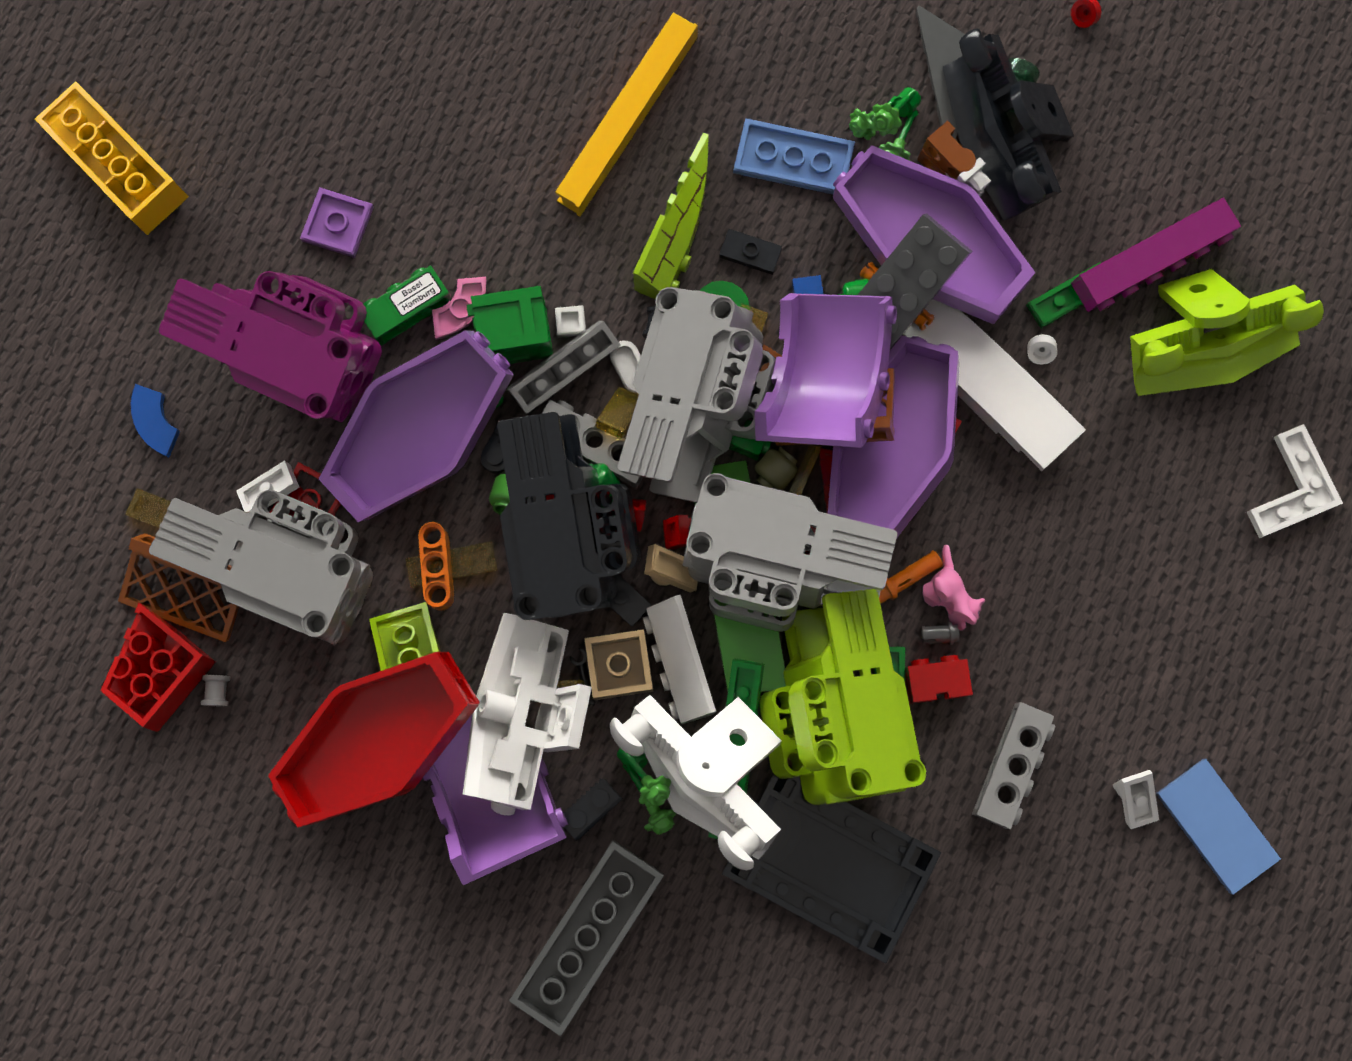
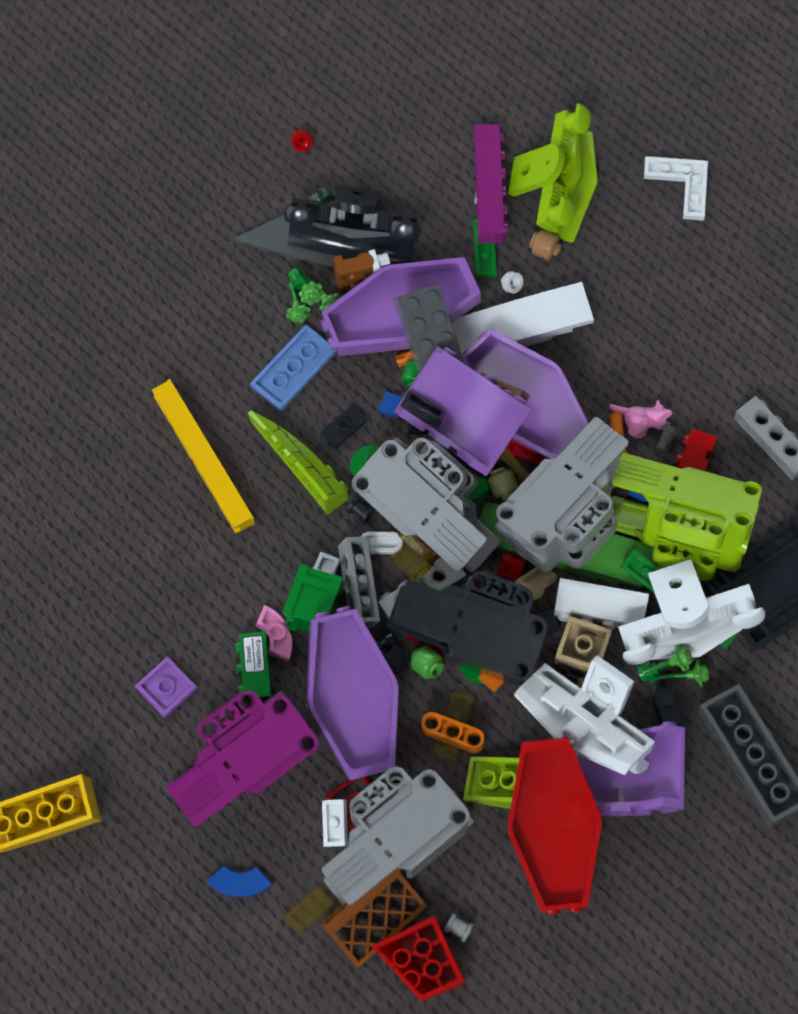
camera: 60 degrees left, 10 degrees down
(805, 323) = (423, 409): none -> black plate
(1113, 363) = (545, 245): none -> medium nougat head

